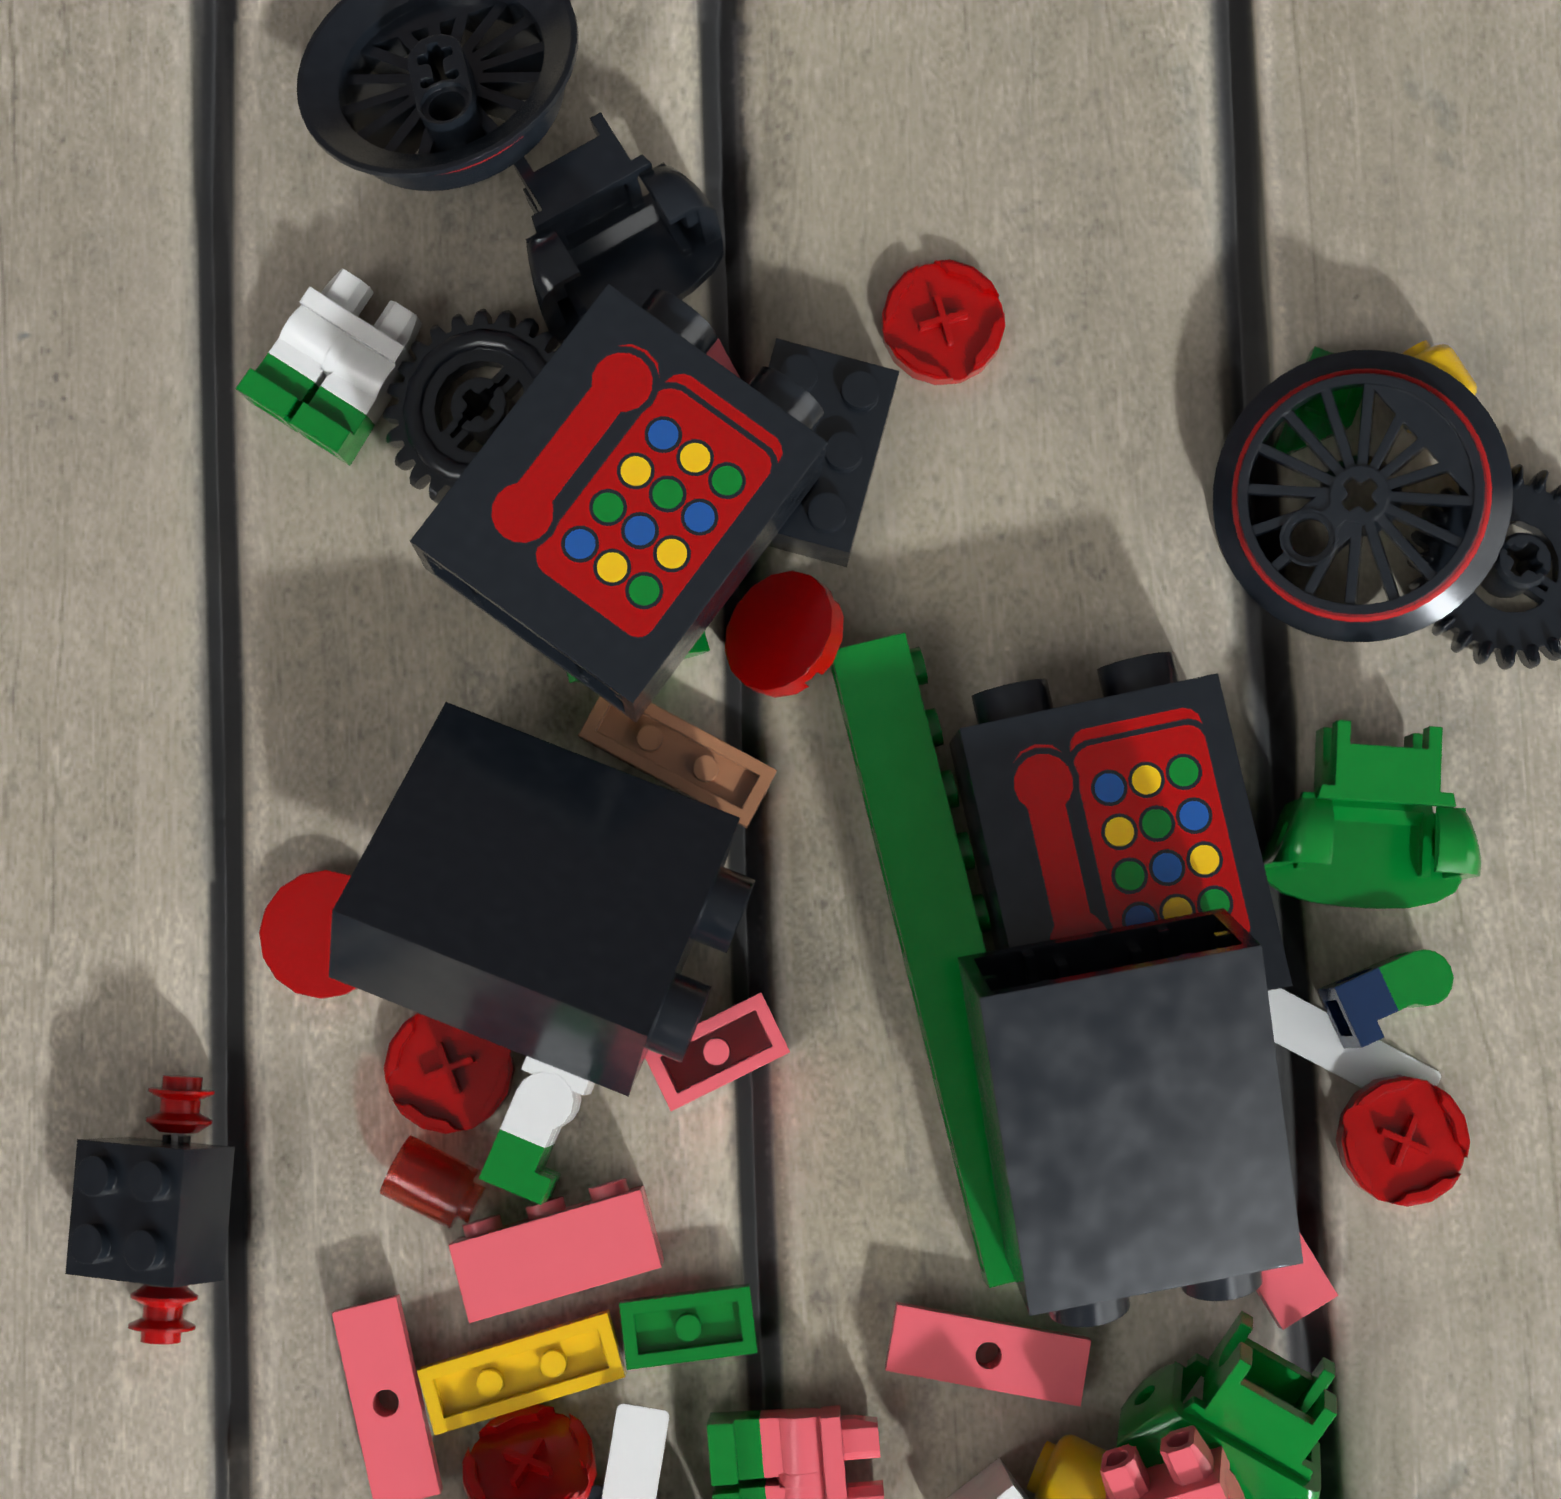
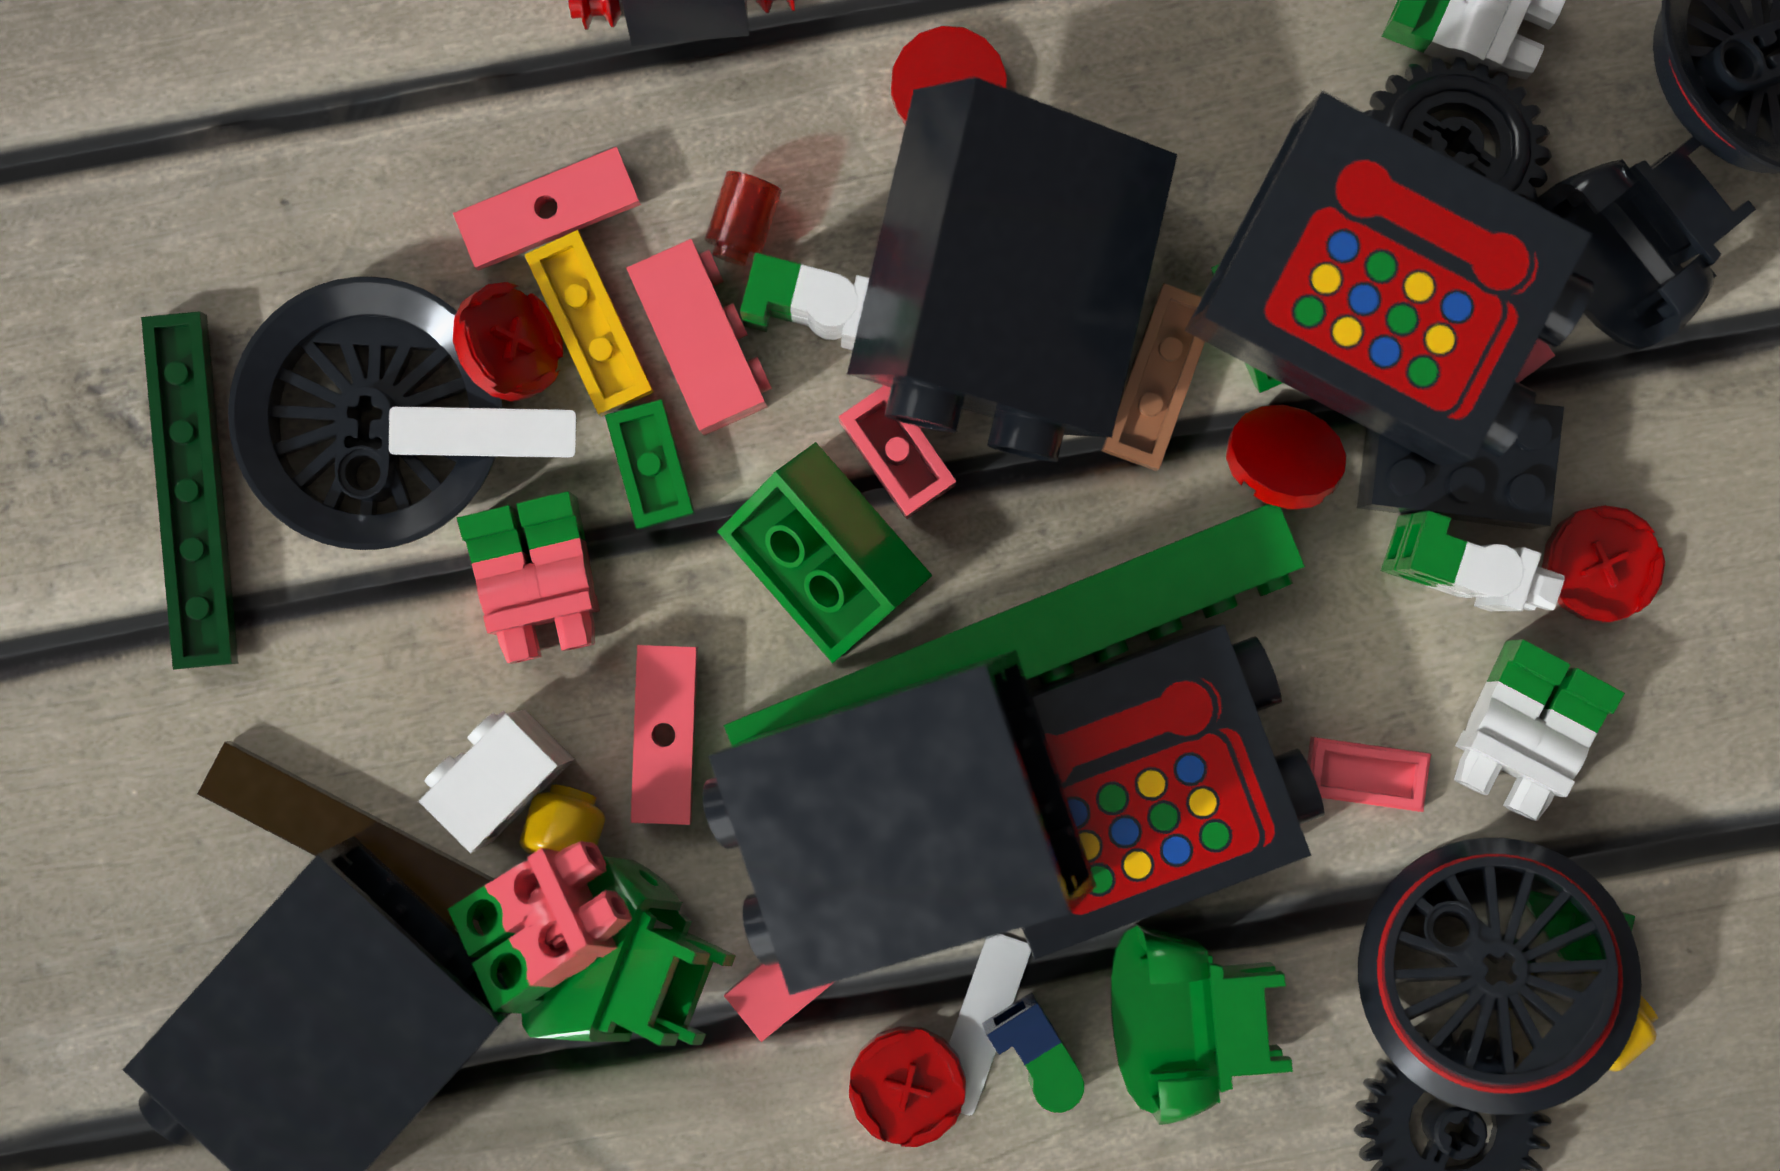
camera: 85 degrees right, 5 degrees up
(446, 1075) = (839, 215): red tile -> none
(813, 1146) = (823, 552): none -> green slope
(941, 438) = (1492, 573): none -> hips
(1103, 418) = (1533, 725): none -> white hips
(1130, 597) = (1369, 773): none -> coral tile

